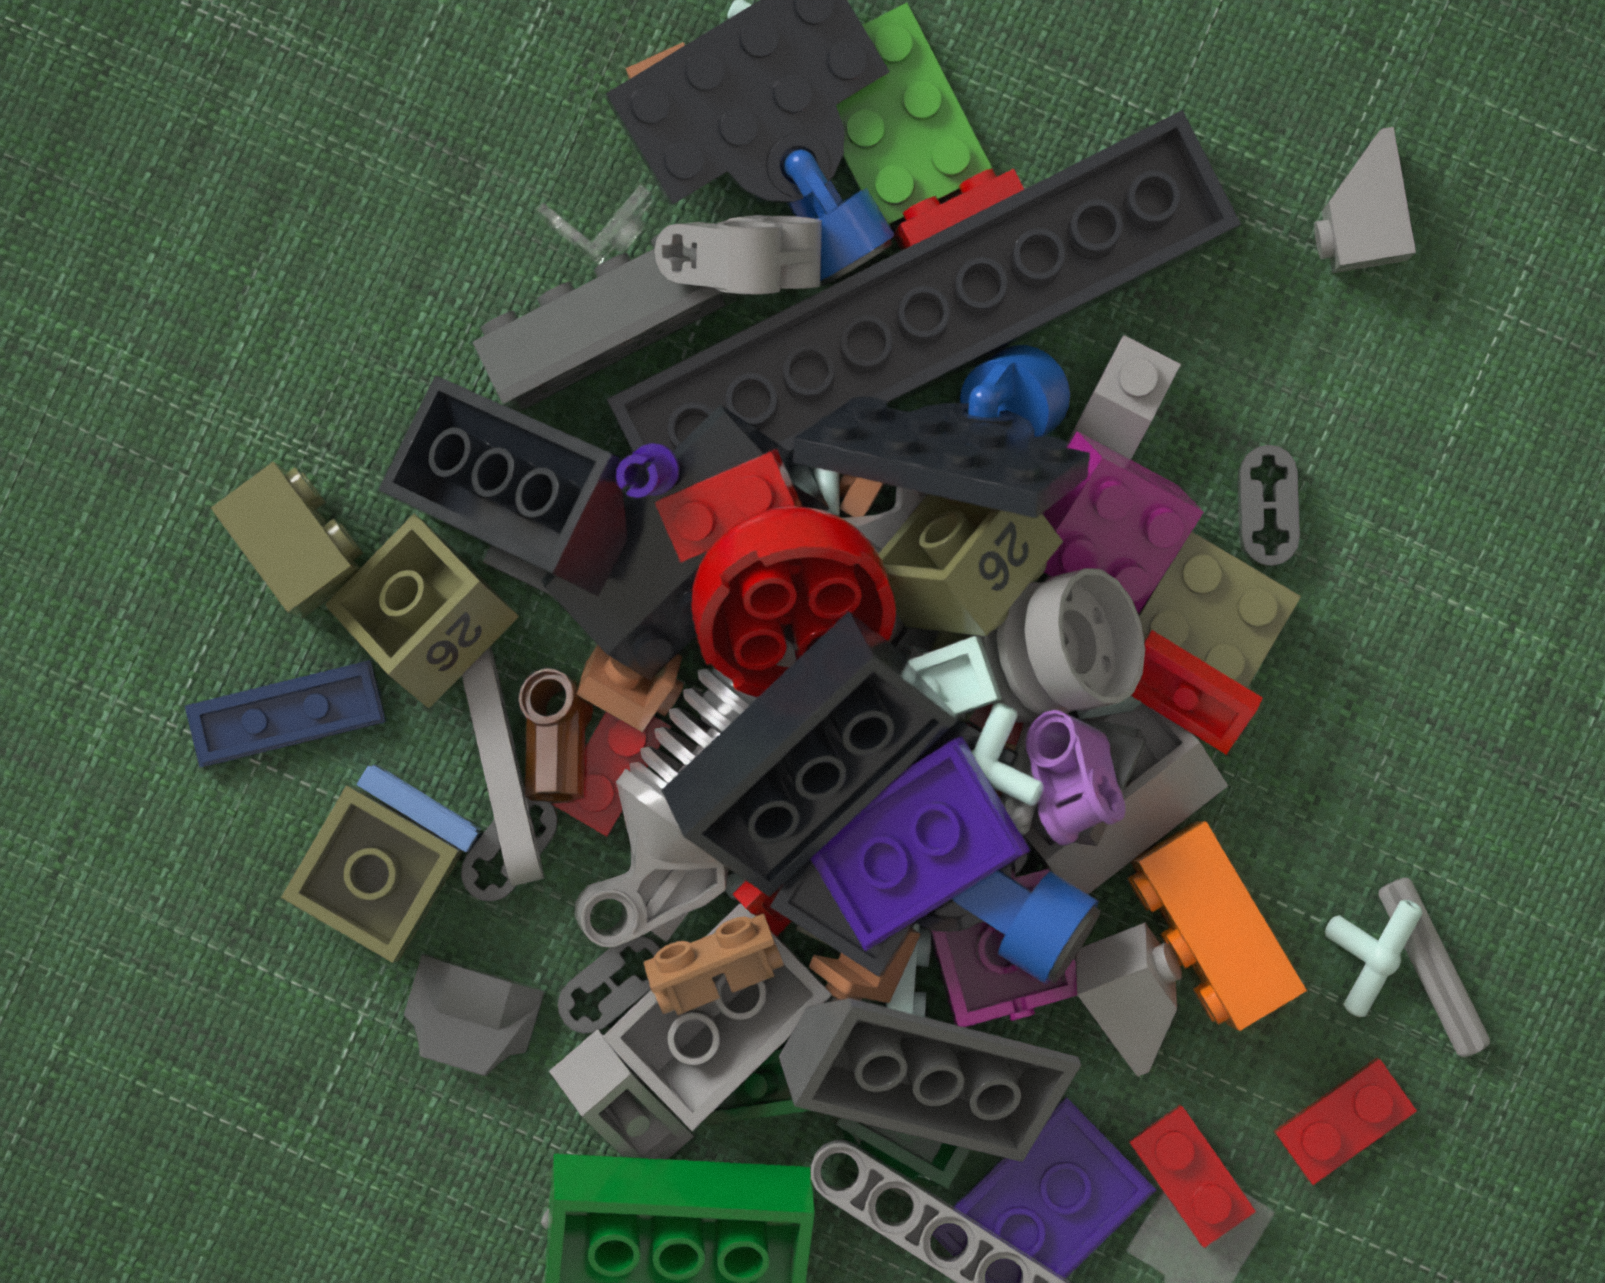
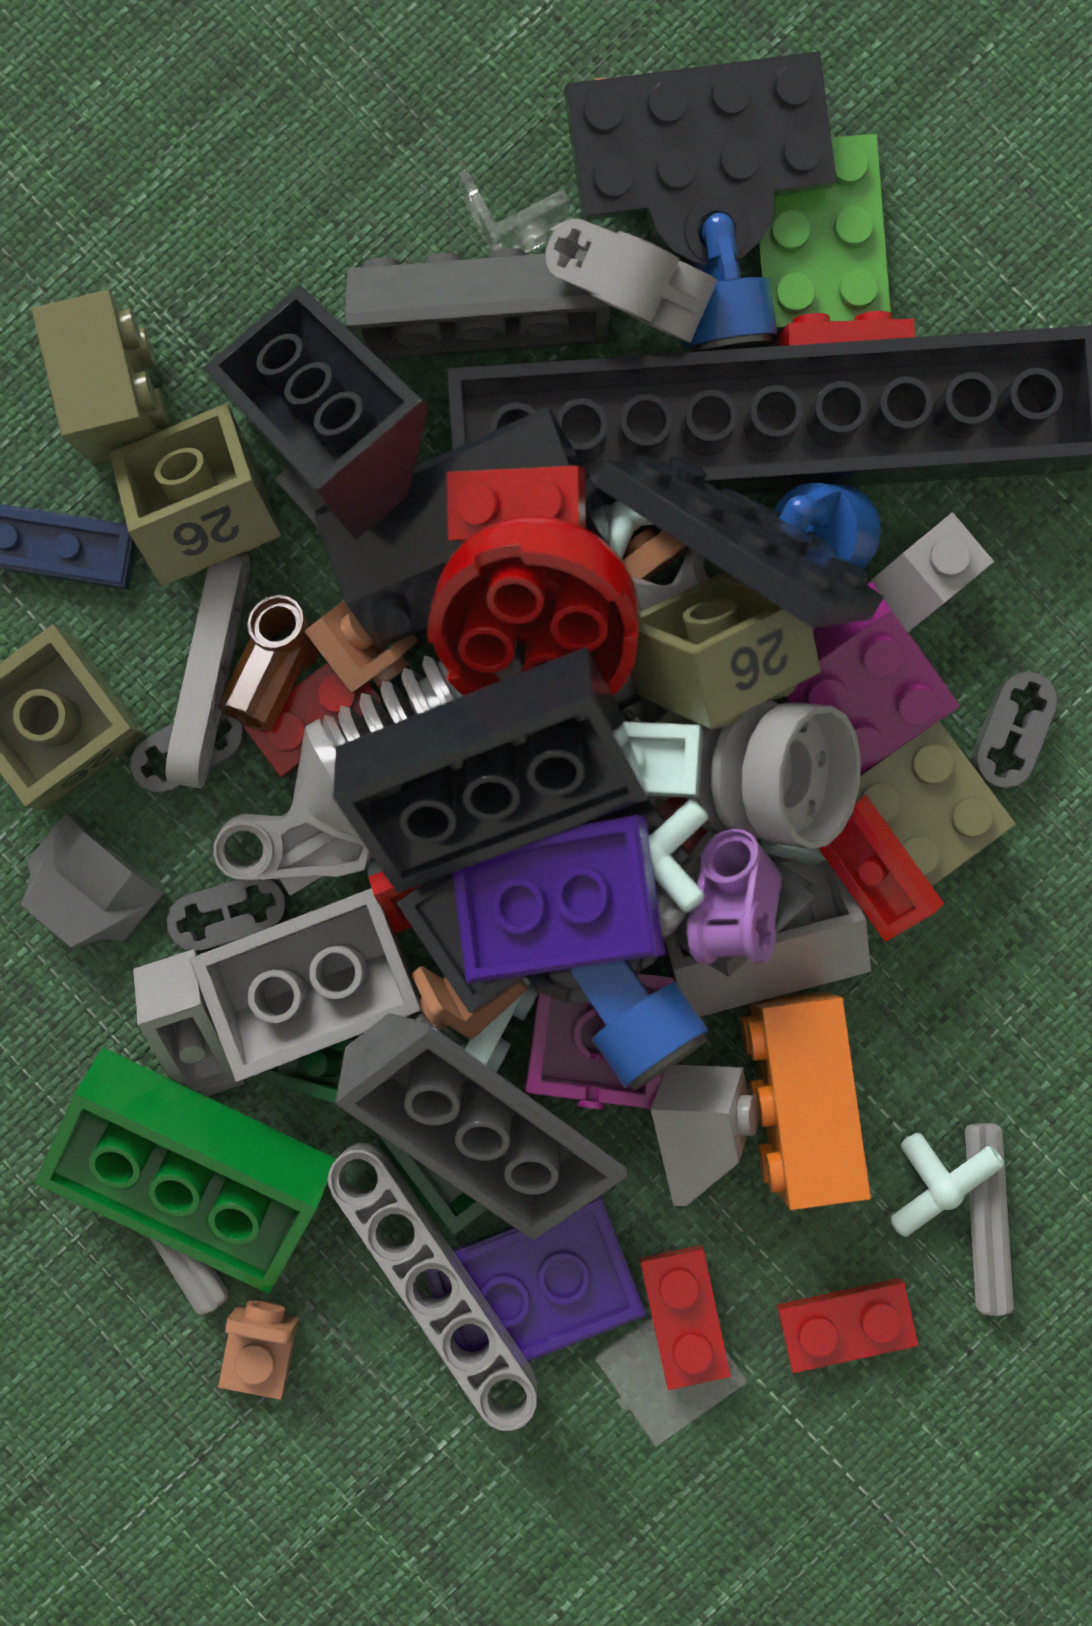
camera: 25 degrees right, 0 degrees up
(420, 807) = (119, 676): medium blue tile -> none
(662, 471) = (453, 438): dark purple pin -> none
(684, 970) = (289, 930): medium nougat hinge -> none

